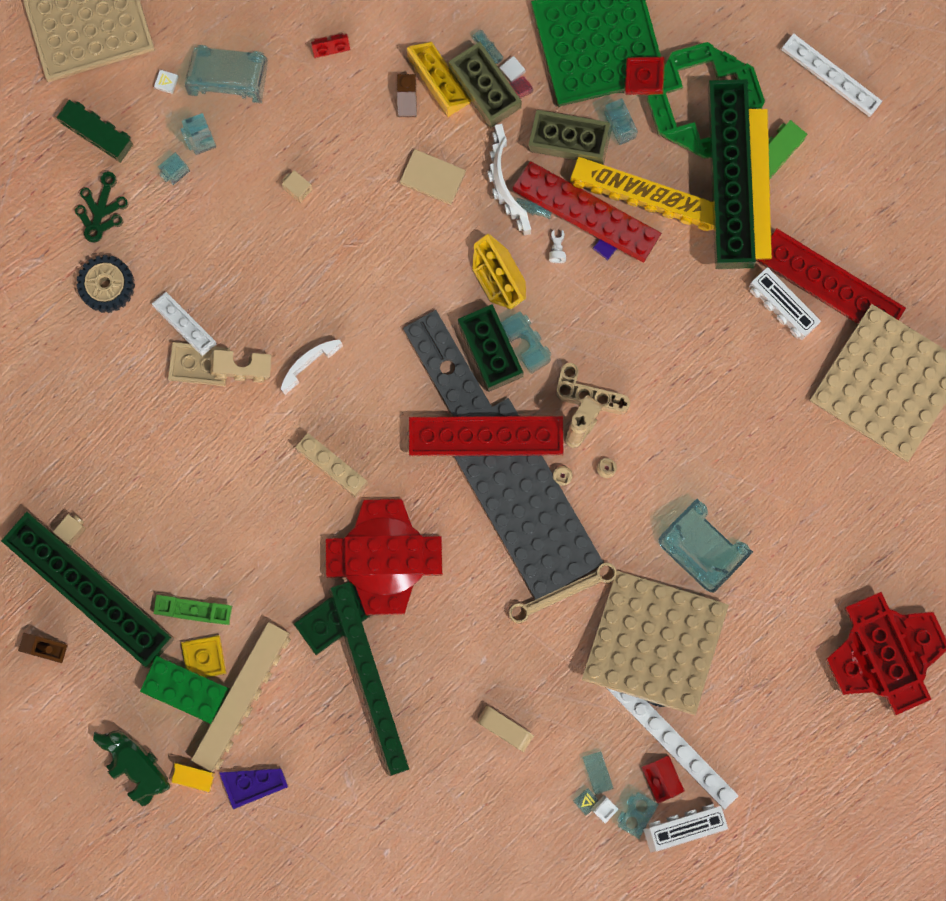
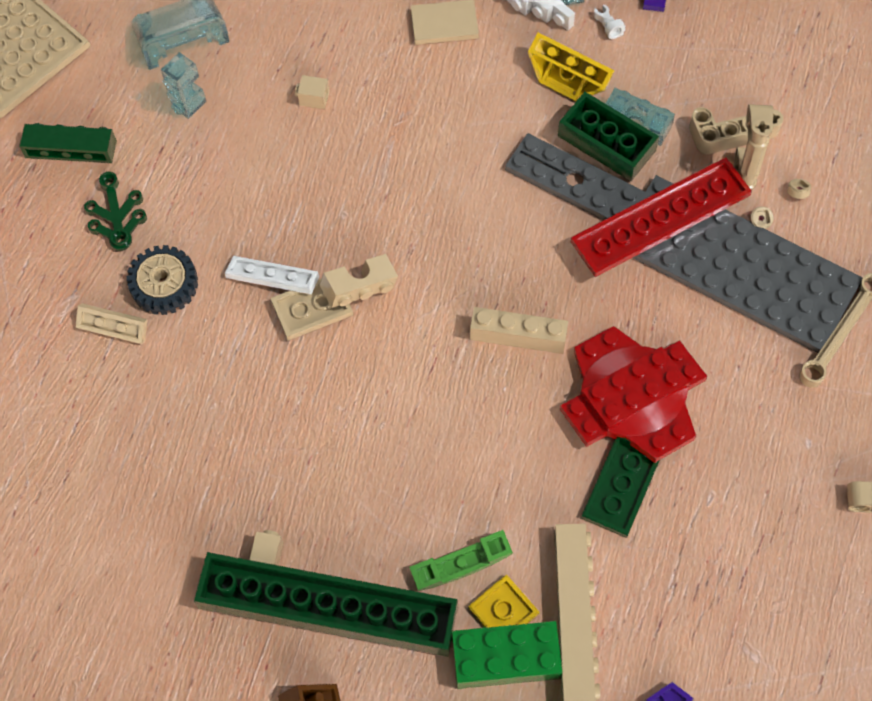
camera: 30 degrees left, 15 degrees down
(52, 299) = (111, 323): none -> tan plate
(166, 81) = (118, 67): white tile -> none
(173, 169) = (173, 137): clear light blue brick -> none
(327, 348) = (438, 224): white slope -> none
(368, 679) = (707, 527): dark green brick -> none

